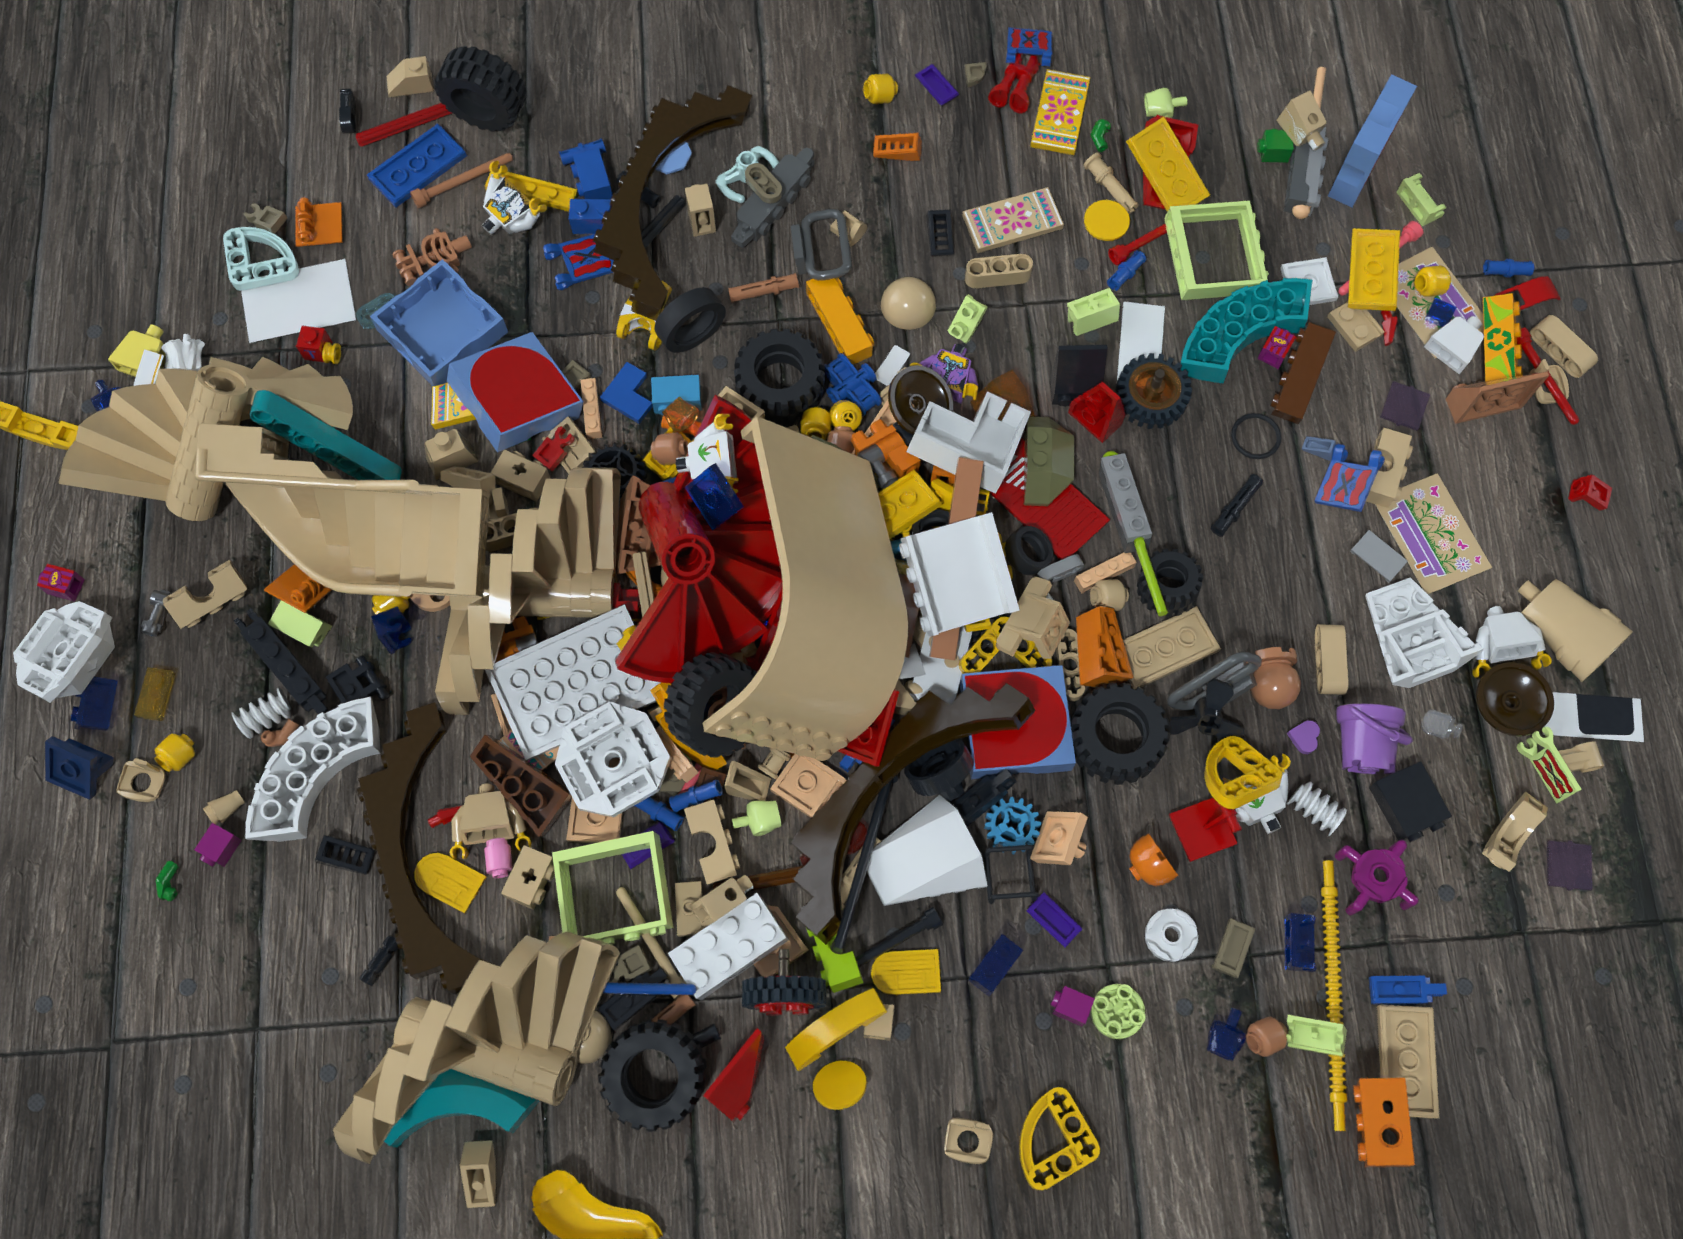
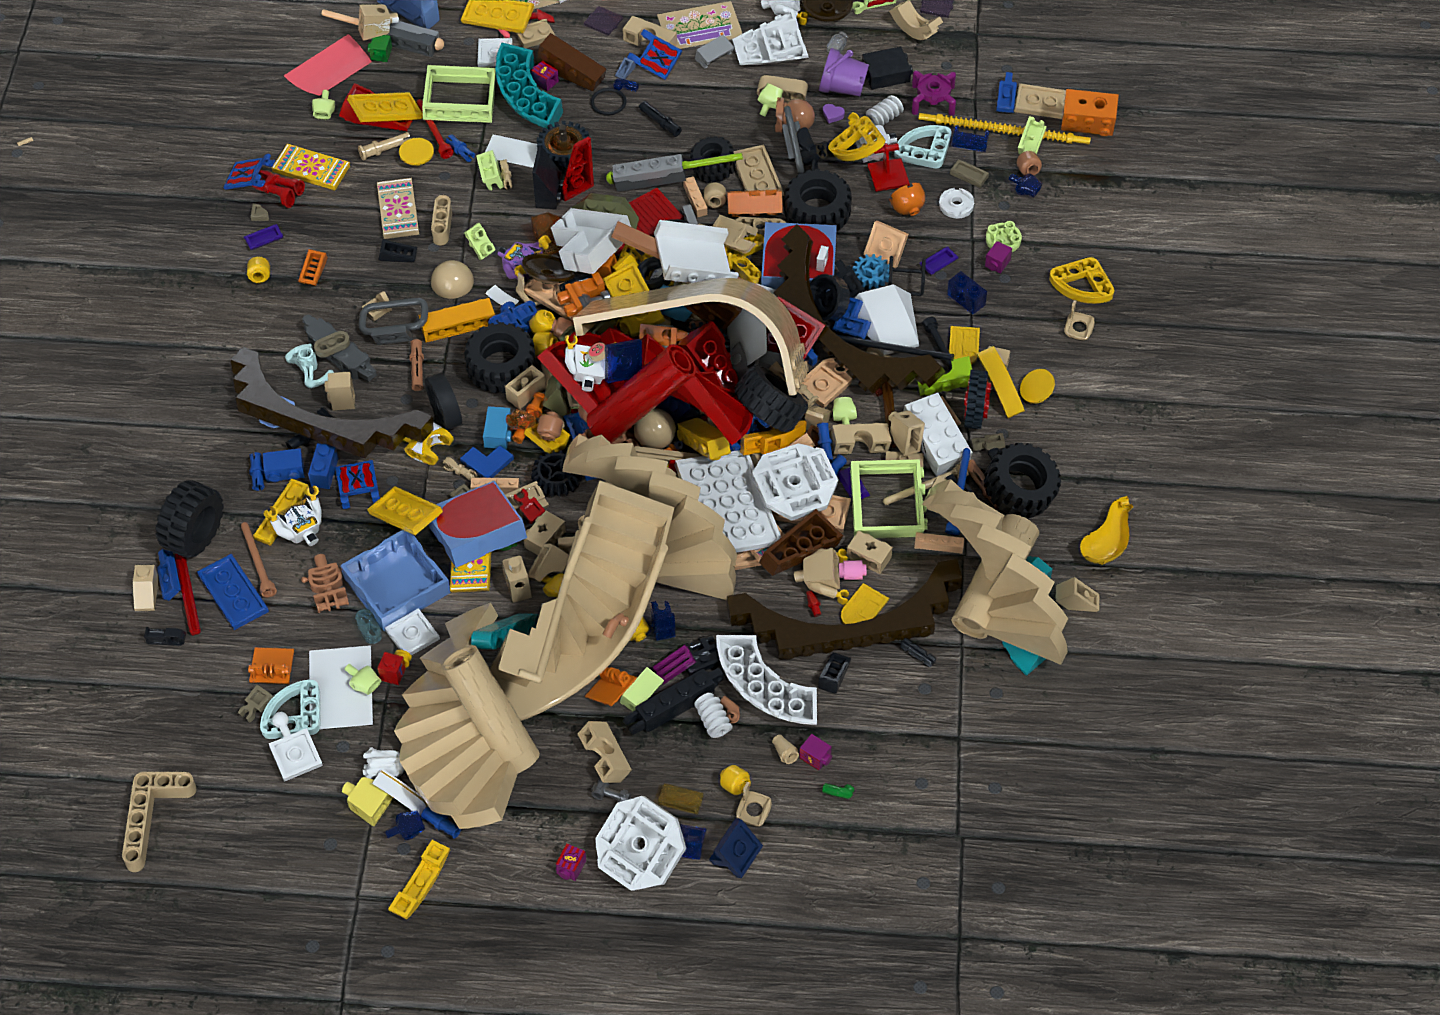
camera: 80 degrees left, 15 degrees down
(120, 139) = (144, 812): none -> tan beam
(200, 268) = (295, 752): none -> white plate
(298, 316) = (363, 680): none -> yellowish green piece
(330, 645) = (673, 661): none -> magenta tile
(334, 561) = (613, 624): none -> nougat arm
(372, 359) = (412, 632): none -> white tile
(414, 102) = (168, 574): none -> blue hinge
(530, 313) = (405, 510): none -> yellow tile
(612, 364) = (451, 465): none -> tan piece
(715, 456) = (597, 352): none -> tile
(732, 1027) = (988, 442): none -> dark tan plate
(735, 1084) = (1020, 428): red slope -> none
(909, 804) = (850, 324): none -> blue tile
(1000, 748) = (822, 258): none -> white tile
(1094, 332) = (505, 174): none -> tan piece
(1098, 132) = (337, 147): green arm -> none
(1233, 98) = (329, 66): none -> coral sticker
(1261, 890) = (932, 153): none -> light aqua beam
(1291, 451) = (619, 83): none -> clear blue arm
(1305, 641) = (768, 98): none -> yellowish green piece

